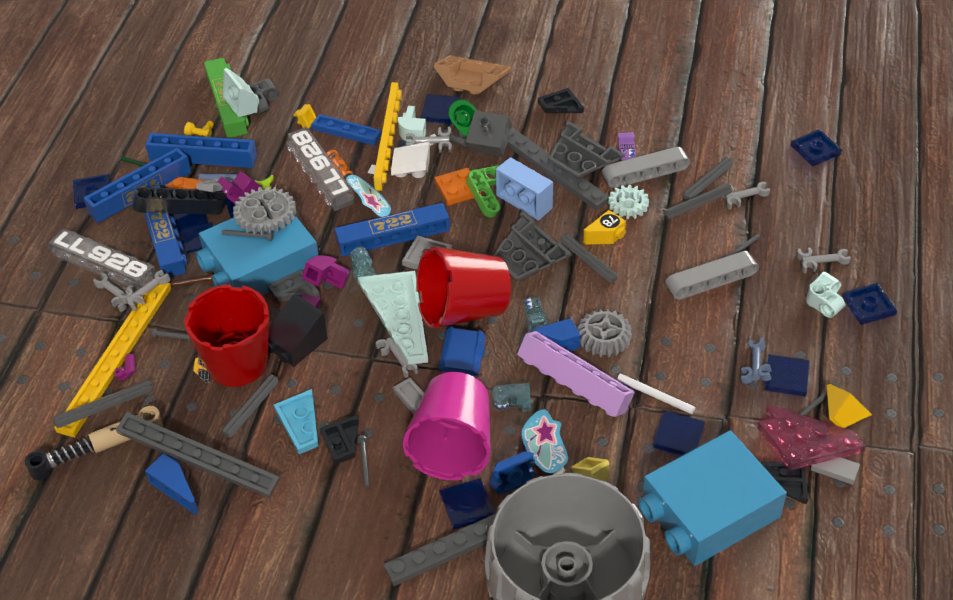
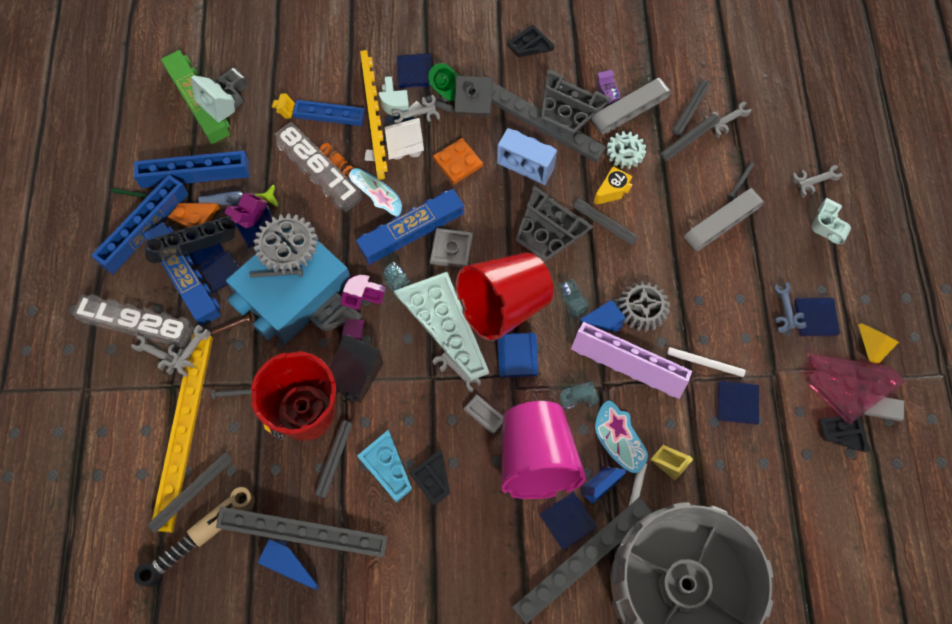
camera: 15 degrees left, 20 degrees up
(86, 186) = (91, 235): clear blue tile -> none
(127, 370) = (200, 443): magenta arm -> none
(206, 131) = (187, 142): yellow piece -> none
(209, 185) = (217, 213): light grey tile -> none
(362, 440) = (452, 474): dark grey piece -> none
(469, 74) = (434, 23): medium nougat slope -> none
(484, 184) = (484, 153): bright green beam -> none
(711, 498) = (790, 473): dark azure brick -> none
(816, 147) = (780, 52): clear blue tile -> none
(817, 401) = (860, 320): dark grey piece -> none
(869, 303) = (869, 221): clear blue tile -> none

